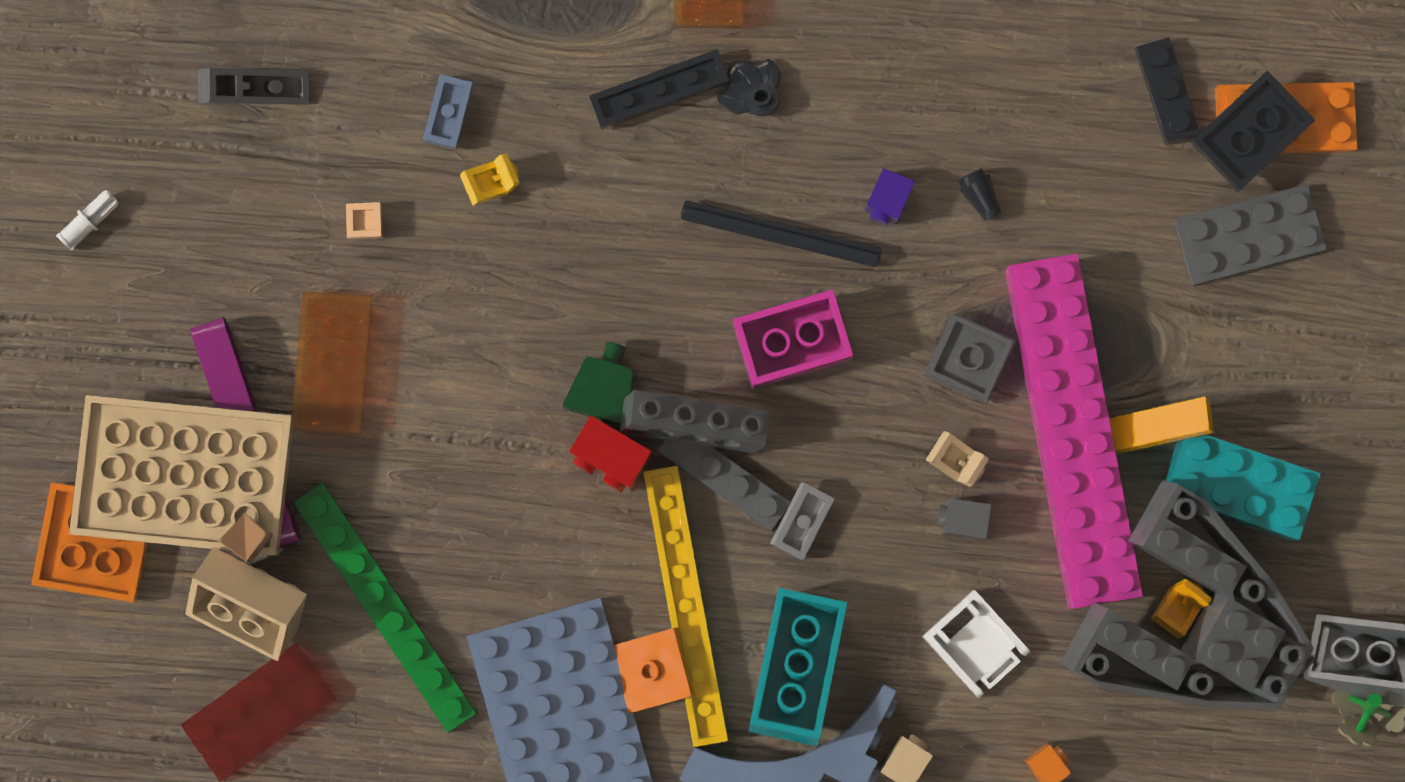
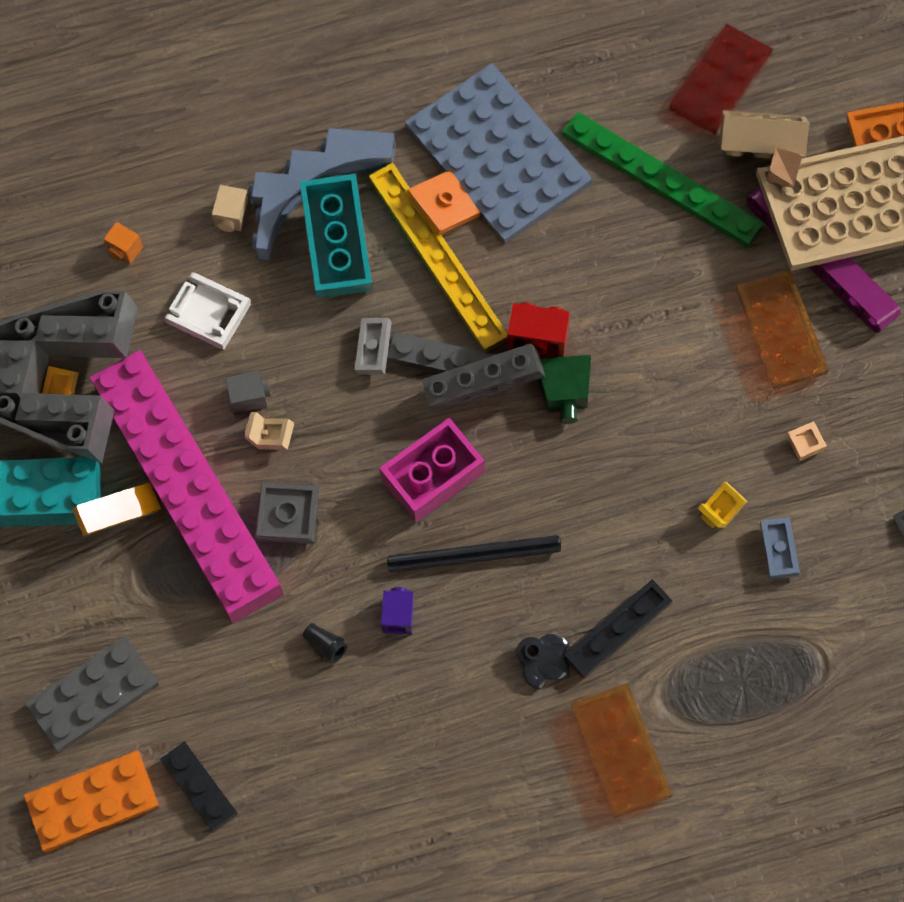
camera: 160 degrees right, 15 degrees down
(1252, 131) = (115, 768): black plate -> none

